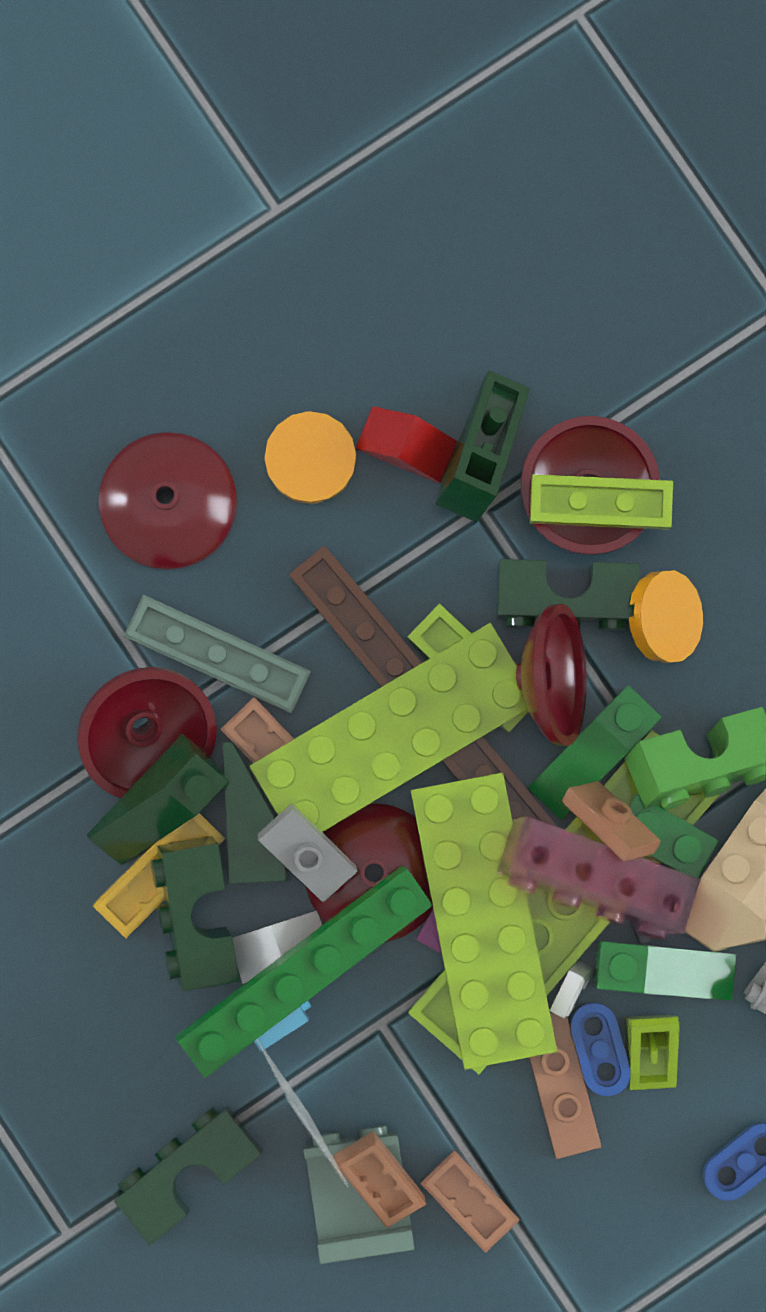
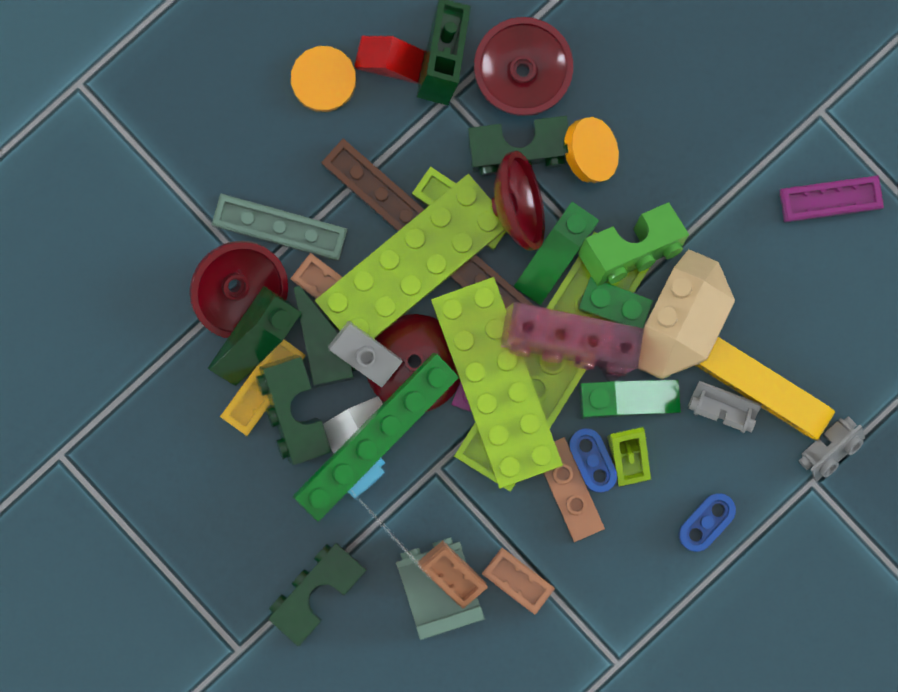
camera: 10 degrees left, 0 degrees up
(175, 532) = (230, 147): dark red dish -> none
(575, 981) = (568, 414): white tile -> none
(601, 502) = (532, 76): lime plate -> none
(611, 821) = (574, 297): nougat plate -> none

